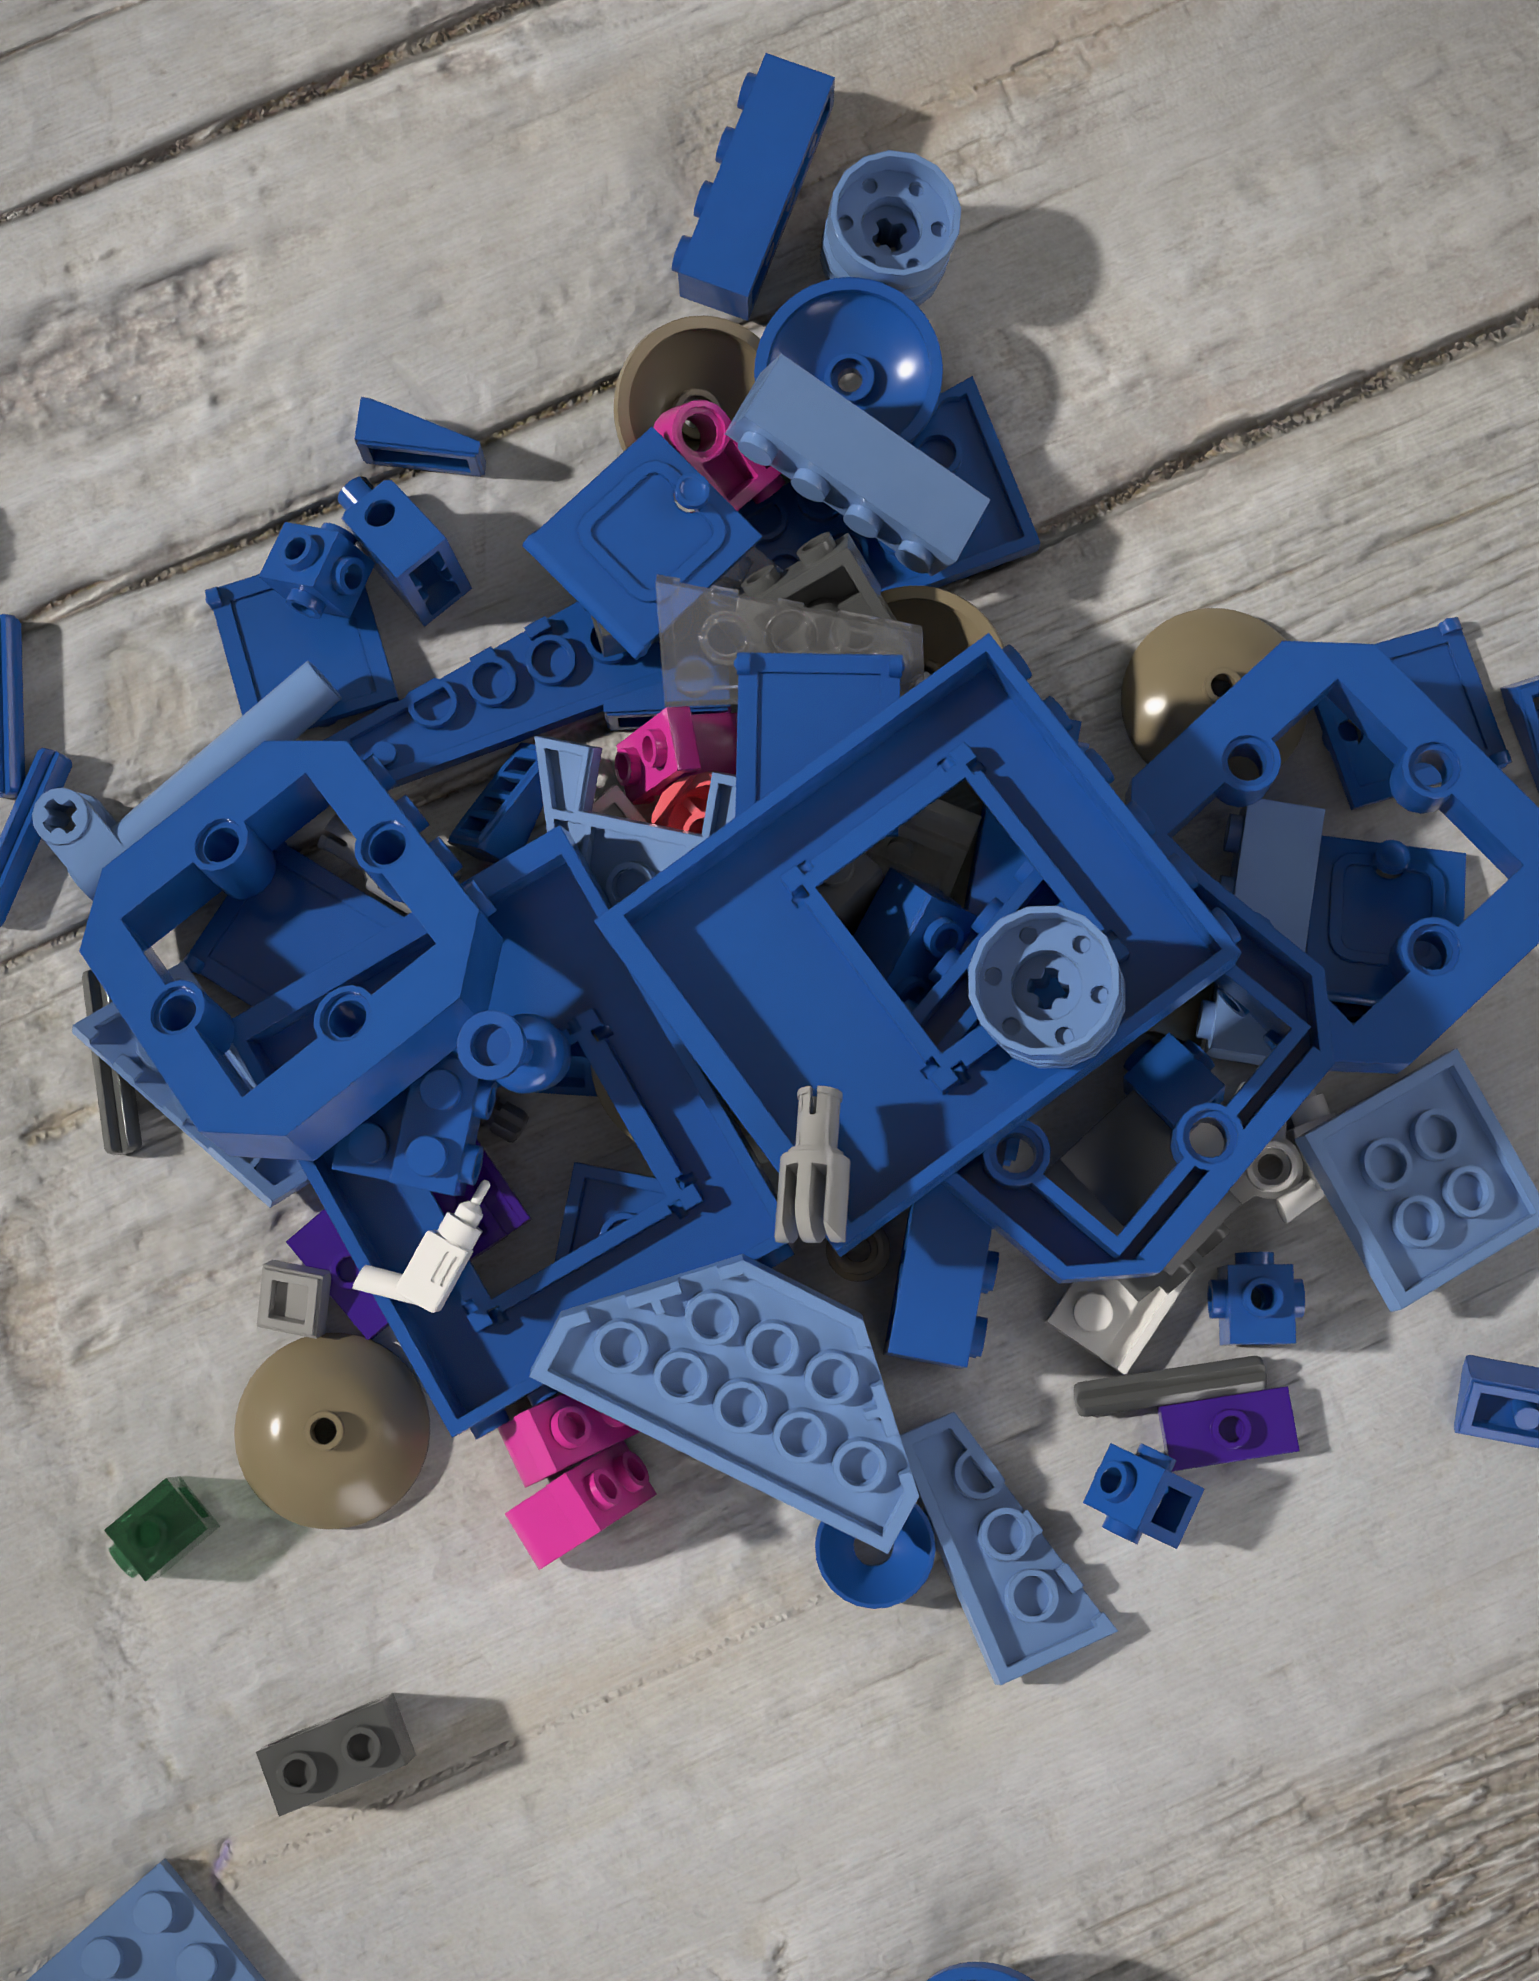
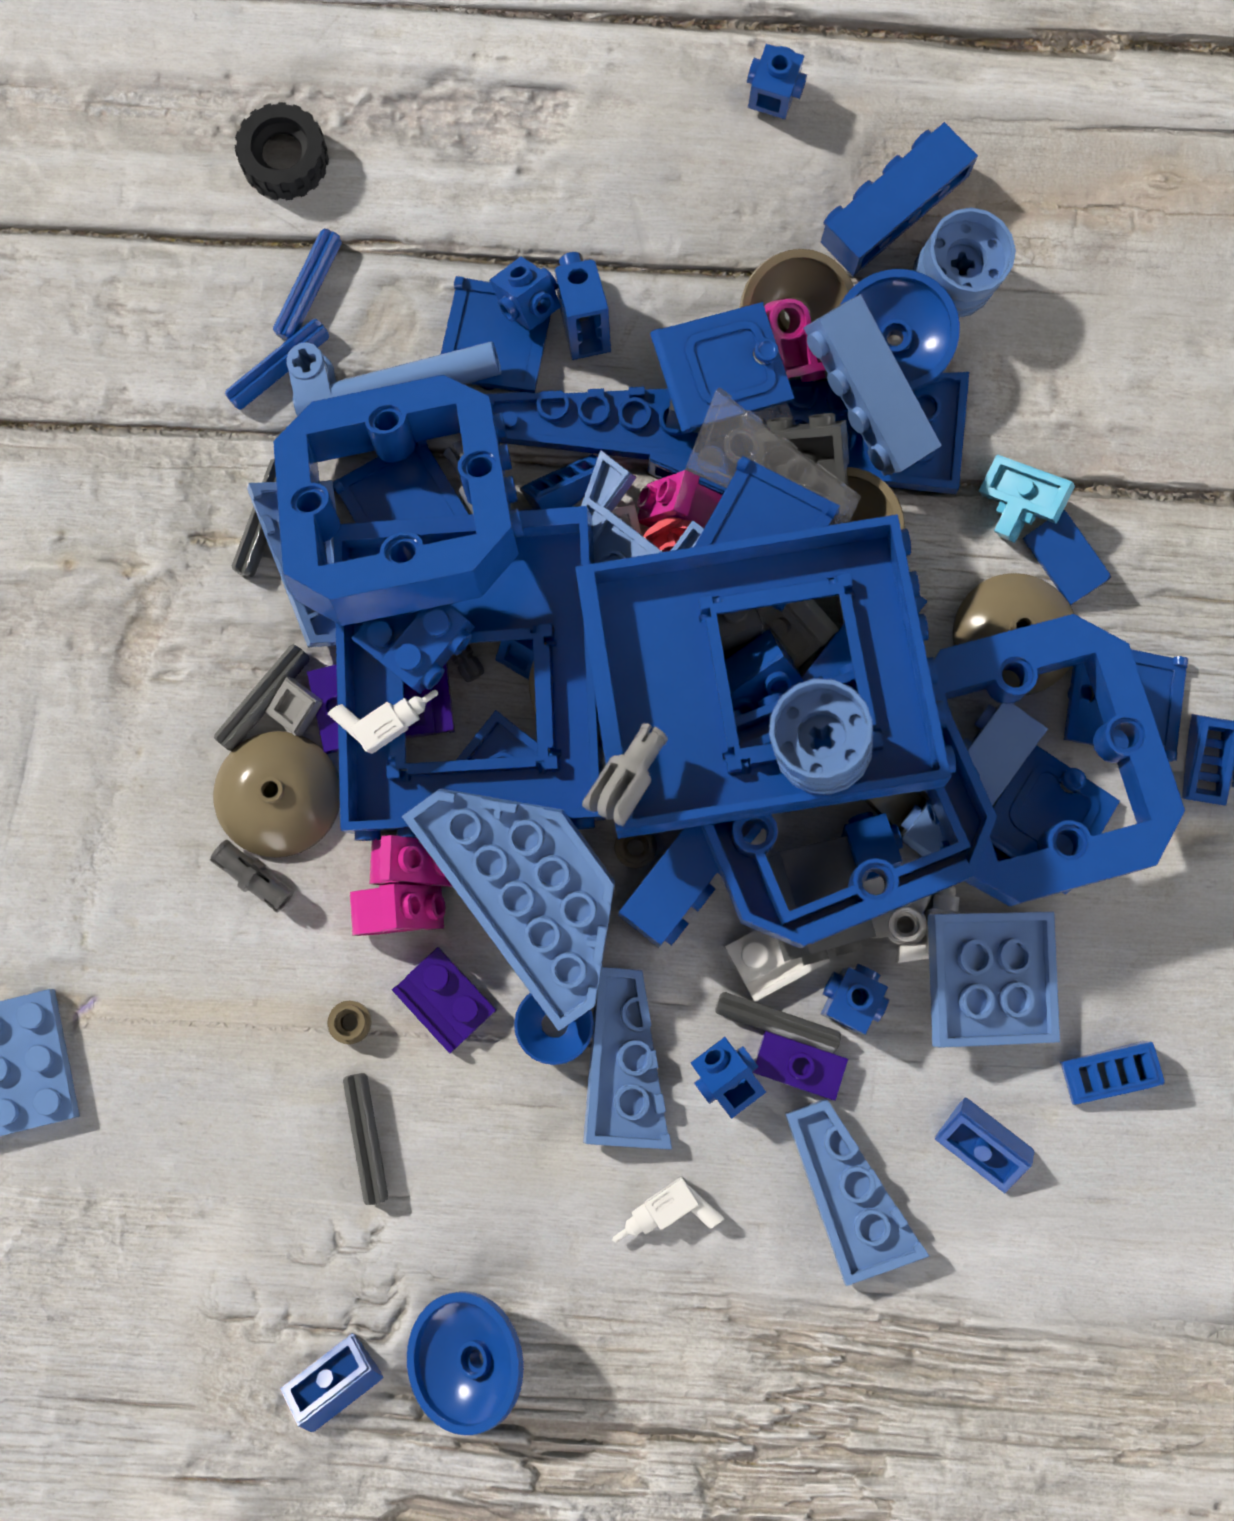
camera: 25 degrees right, 0 degrees up
(159, 1530) = (148, 798): clear green brick -> none
(240, 1310) = (258, 700): none -> dark grey axle
(336, 1754) = (180, 980): dark grey brick -> none
(357, 1561) = (251, 876): none -> flat silver pin
(406, 441) = (617, 247): blue slope -> none
(506, 104) = (776, 80): none -> blue brick
(515, 1050) = (493, 623): blue piece -> none
(595, 1711) = (336, 1027): none -> dark tan plate
(700, 1835) = (365, 1139): none -> dark grey axle
(708, 1591) = (444, 1000): none -> dark purple plate
(1131, 507) = (1023, 495): none -> medium azure hinge
(1152, 1712) = (667, 1207): none -> white piece
(1230, 562) = (1067, 558): none -> blue slope
(1403, 1583) = (856, 1210): none -> medium blue wing

